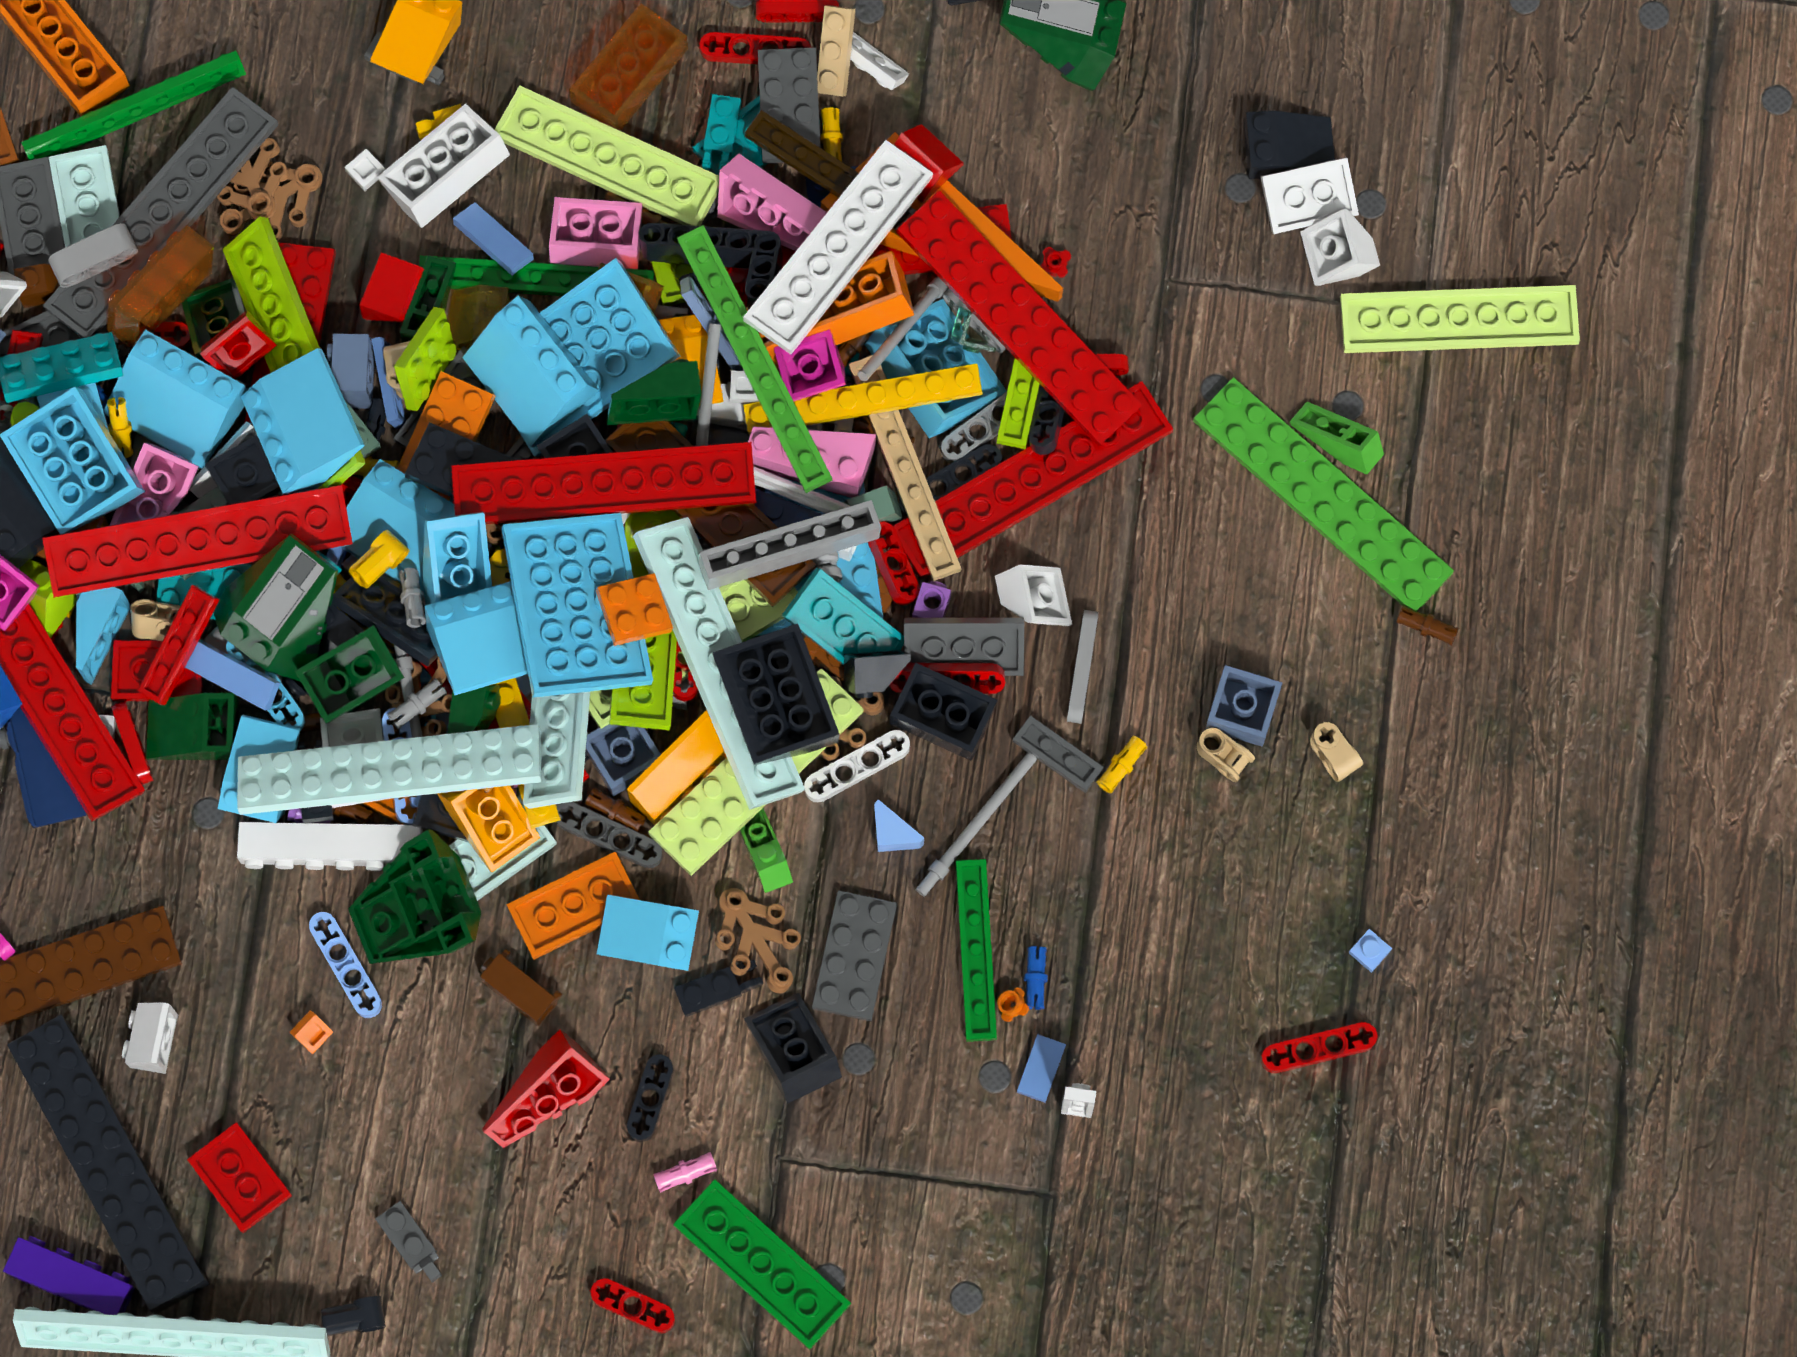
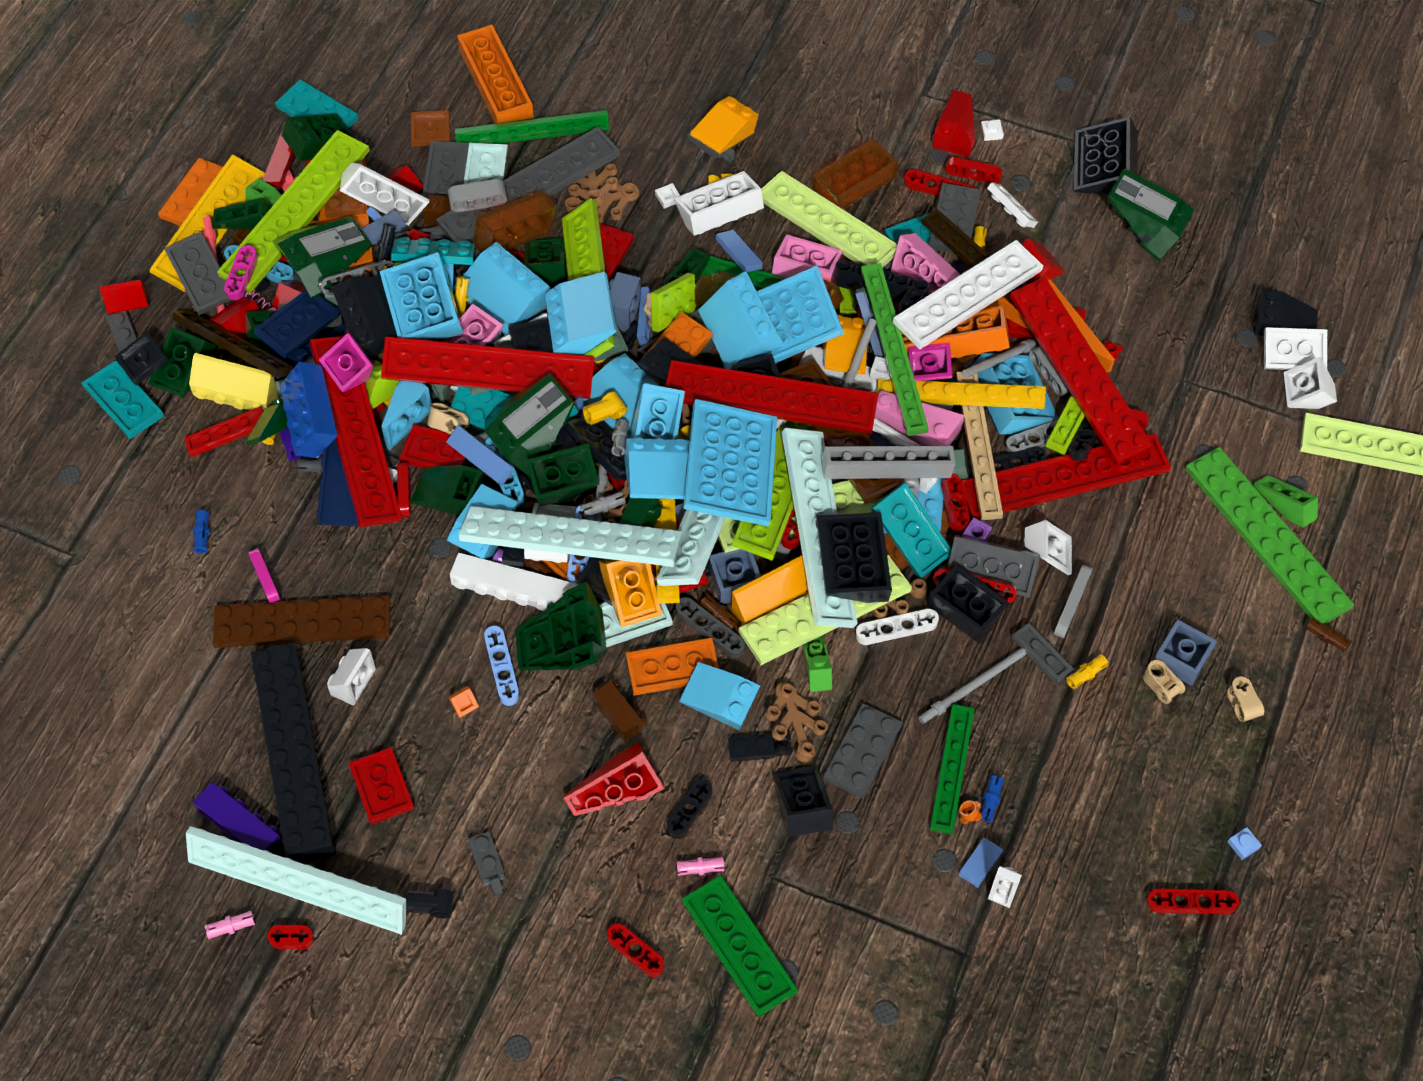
camera: 15 degrees right, 15 degrees down
(178, 645) = (454, 432): red tile -> none
(238, 346) = (553, 264): red slope -> none
(390, 289) = (661, 260): red slope -> none
(634, 609) = (769, 474): orange plate -> none
(662, 395) = (821, 351): dark green slope -> none
(721, 129) = (907, 220): teal hinge -> none
(835, 50) = (993, 194): tan plate -> none
(872, 671) = (923, 563): slope -> none
(894, 832) = (913, 675): light blue slope -> none
(959, 336) = (1036, 373): clear green bracket -> none

